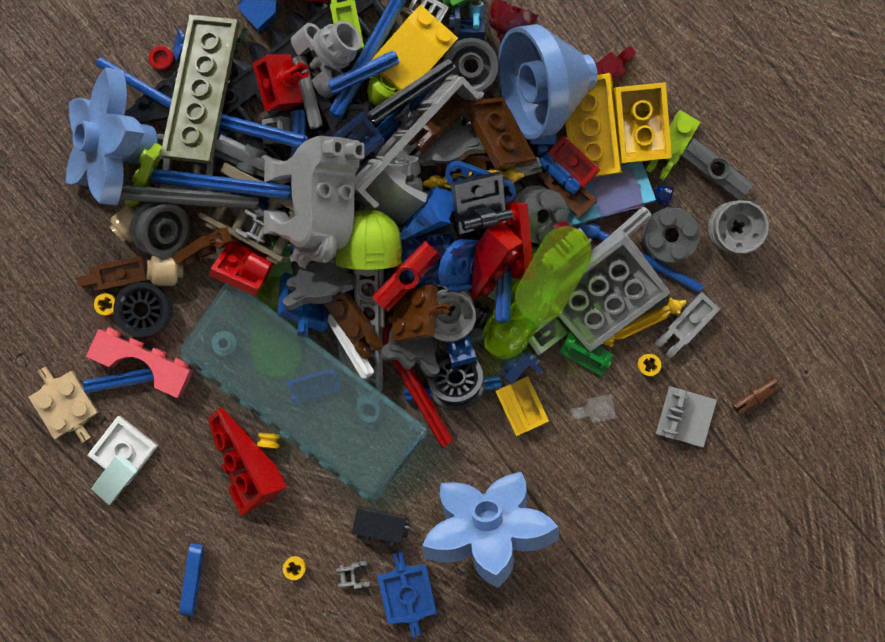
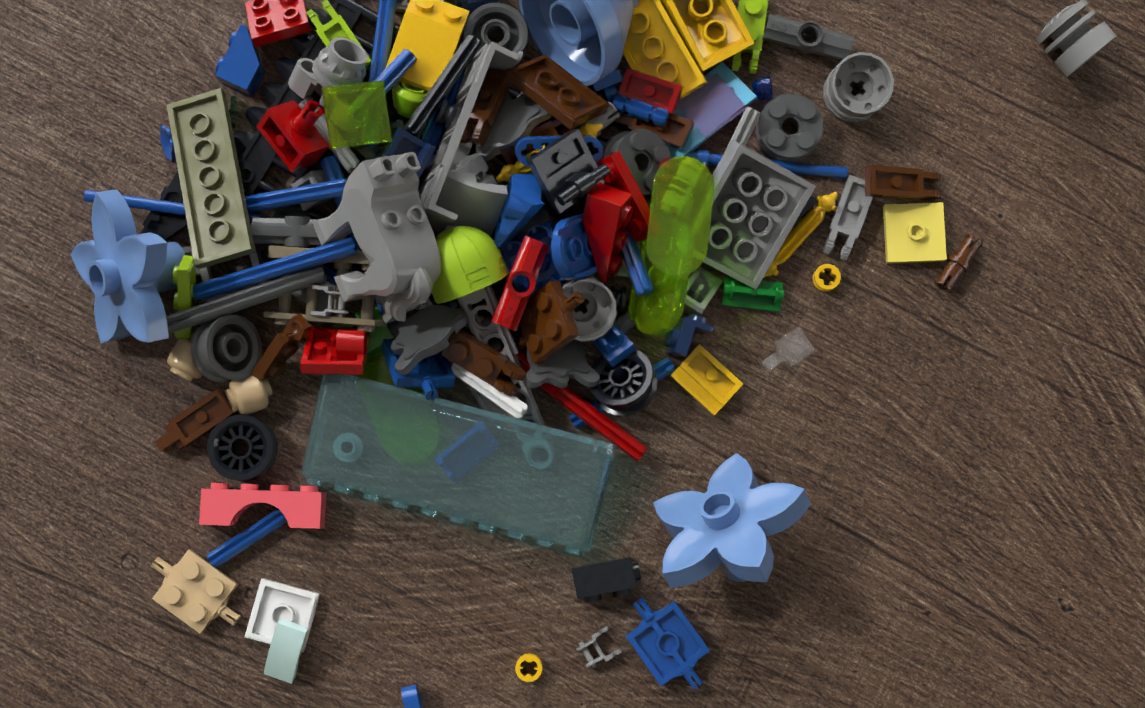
camera: 20 degrees left, 5 degrees down
(97, 304) = (193, 452): yellow bush -> none
(161, 58) = (154, 166): red tile -> none
(249, 469) = (433, 576): red wedge -> none
(268, 440) = (441, 534): yellow bush -> none
(333, 89) = (356, 114): none -> clear neon green plate
(686, 416) = (891, 317): light grey hinge -> none
(733, 358) = (914, 233): none -> light yellow plate
(737, 315) = (900, 183): none -> reddish brown hinge

